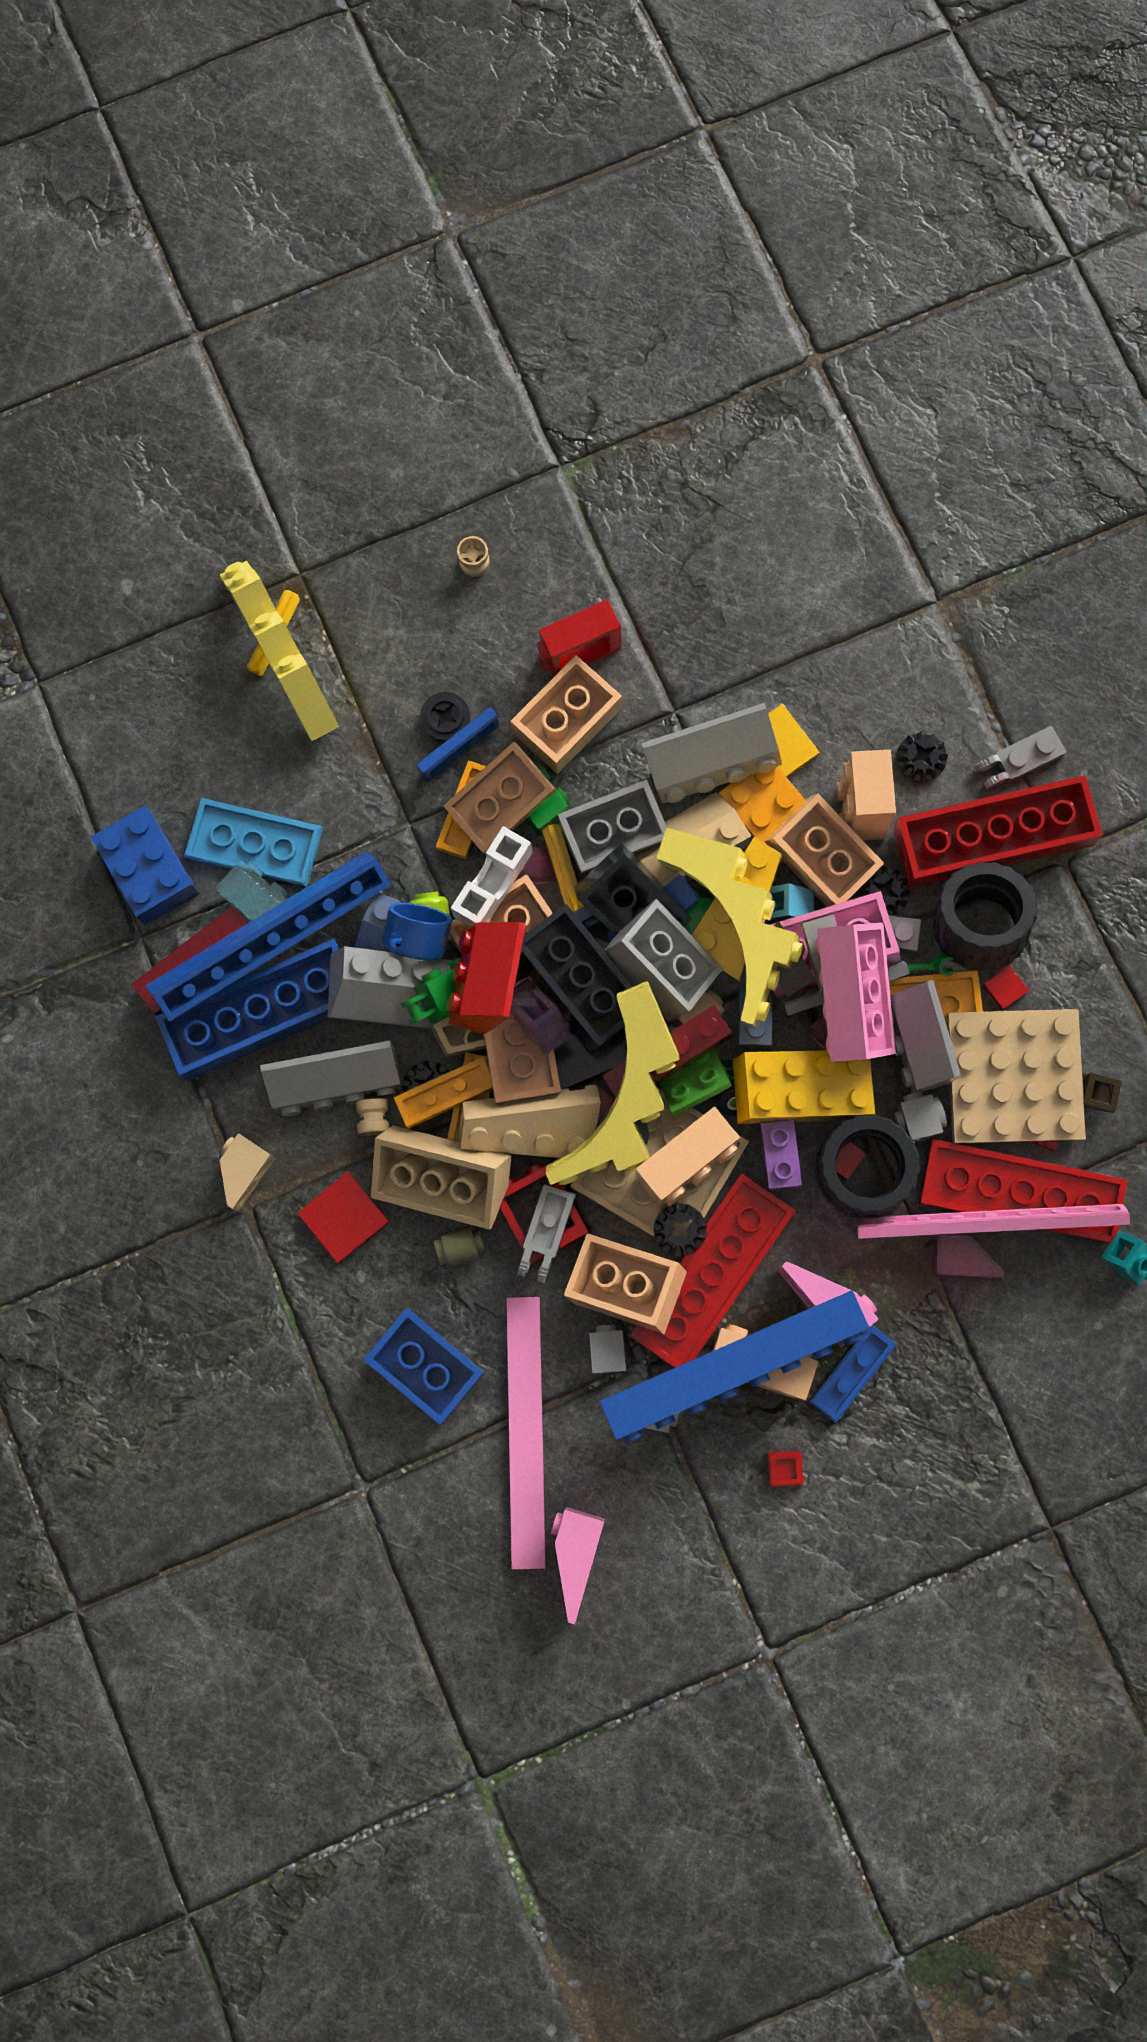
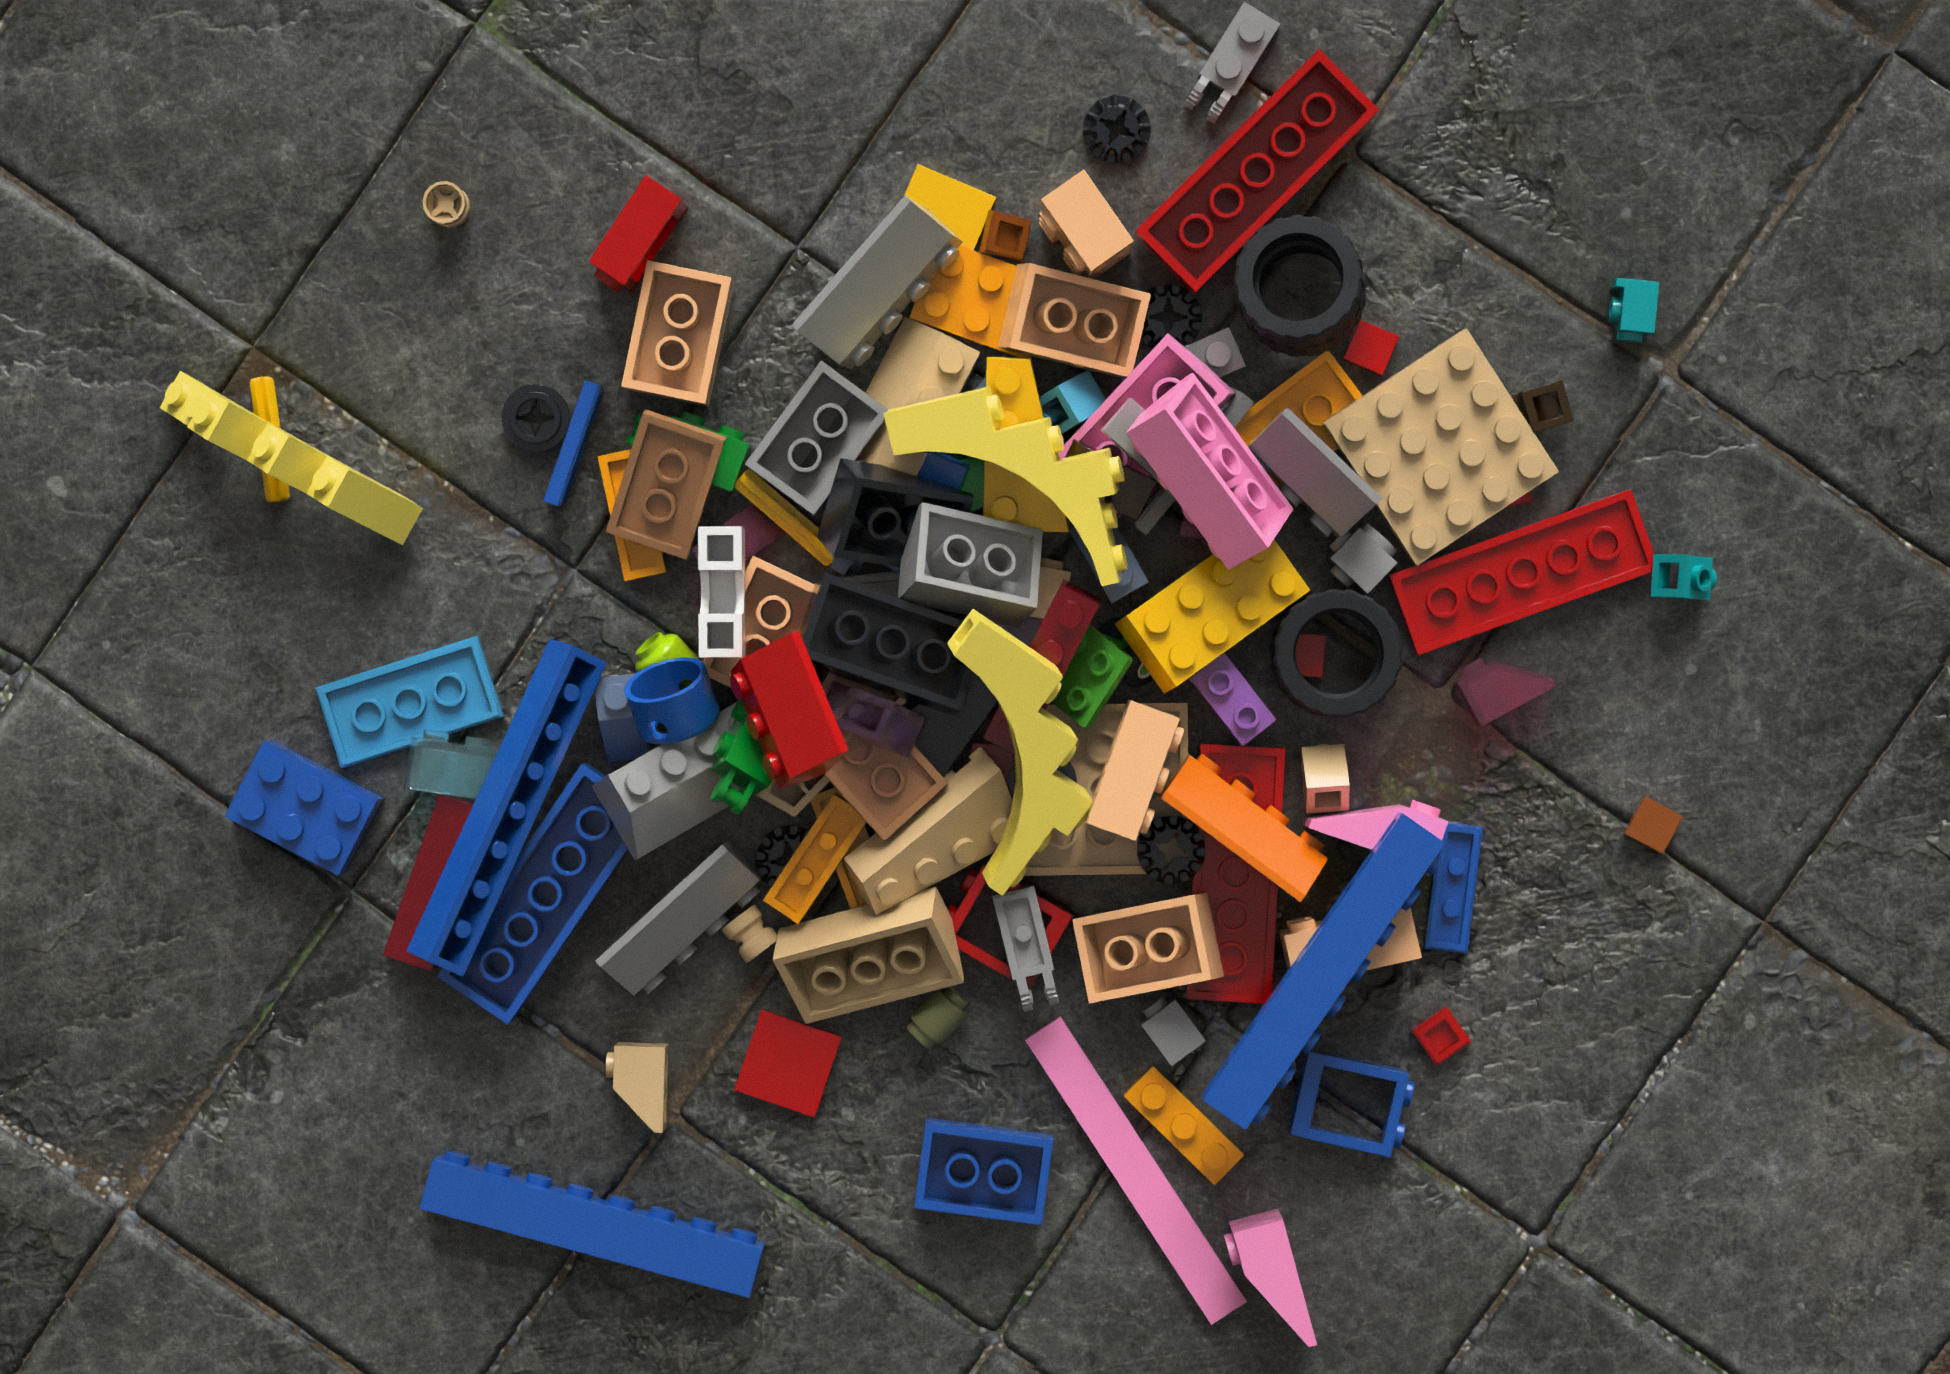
camera: 40 degrees left, 10 degrees up
(150, 1244) = (592, 1224): none -> blue brick
(576, 1421) = (1183, 1124): none -> light orange plate
(672, 1449) = (1307, 1093): none -> blue window
(737, 1241) = (1244, 827): none -> orange slope
(810, 778) = (1005, 236): none -> dark orange tile
(811, 1245) = (1325, 778): none -> brick
(935, 964) = (1277, 372): green hand -> none
(993, 1221) = (1510, 630): bright pink tile -> none
(1013, 1414) = (1653, 824): none -> dark orange tile

